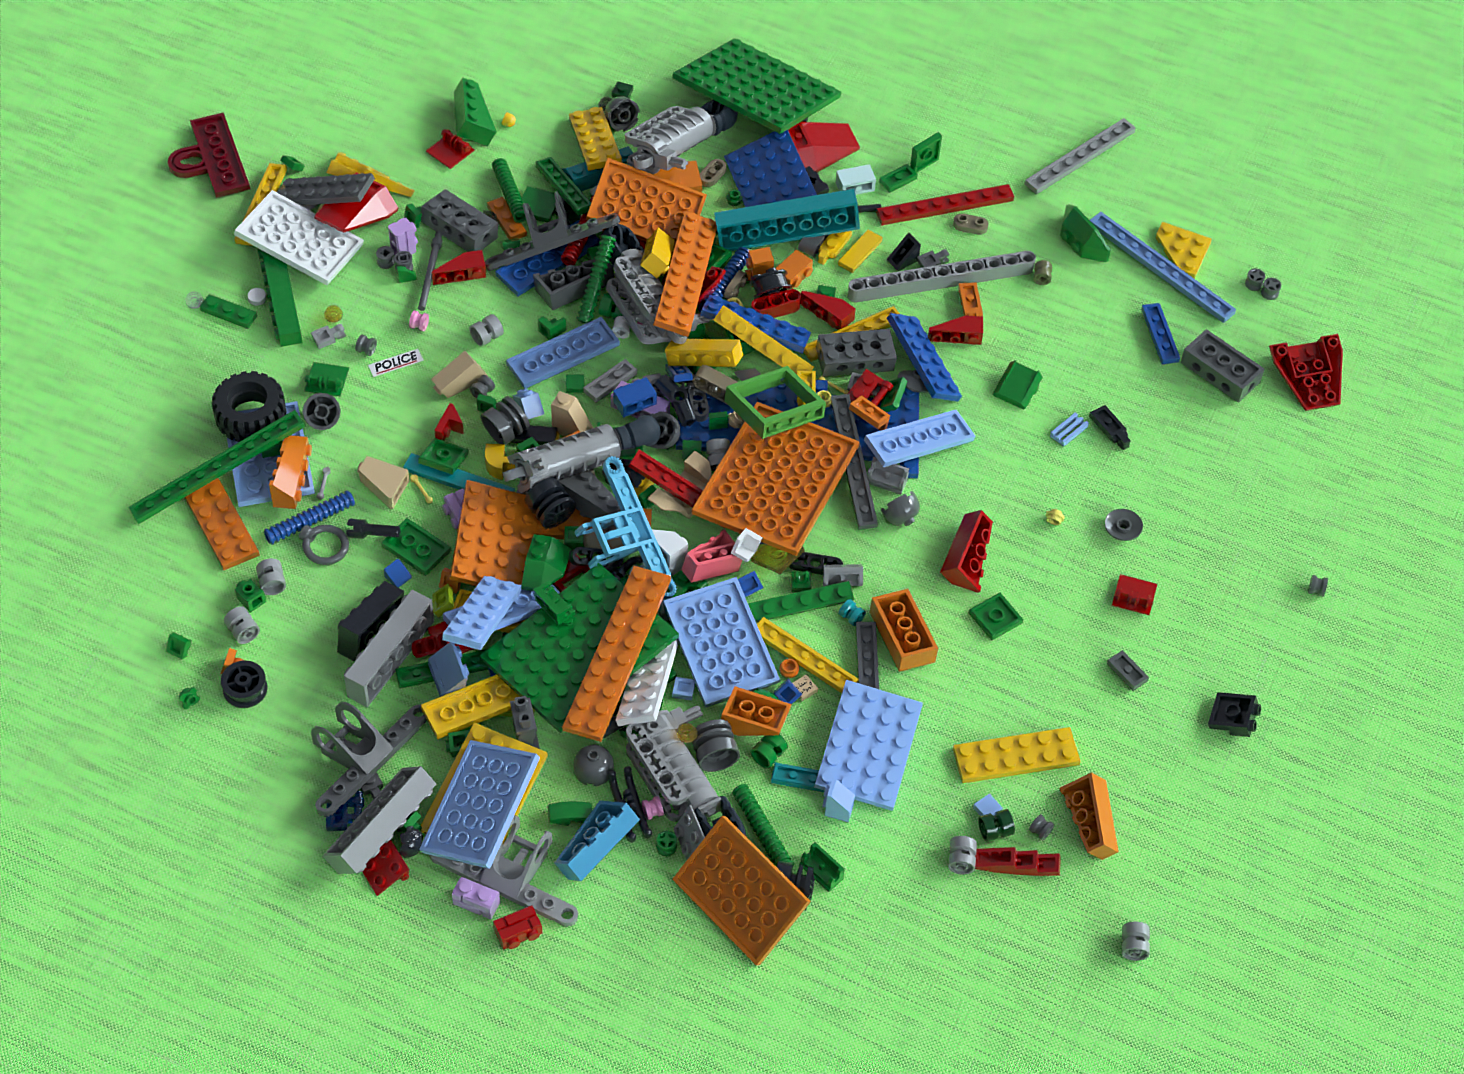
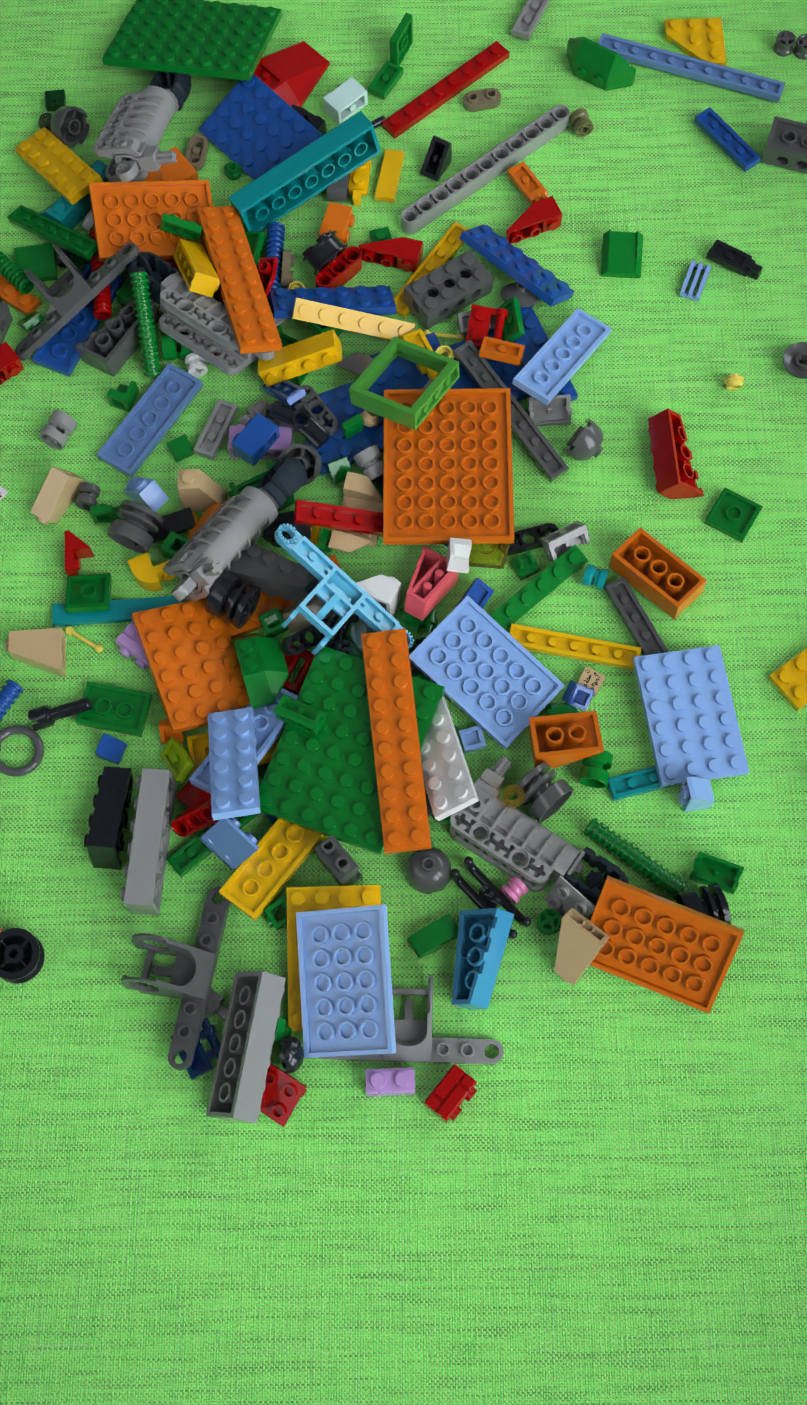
camera: 20 degrees left, 15 degrees up
(663, 220) = (179, 227): none -> green plate
(676, 864) = (577, 946): none -> tan slope
(712, 382) = (328, 387): dark tan beam -> none
(758, 262) = (302, 234): orange brick -> none
(789, 668) = (565, 667): orange plate -> none
(932, 259) = (466, 155): flat silver plate -> none

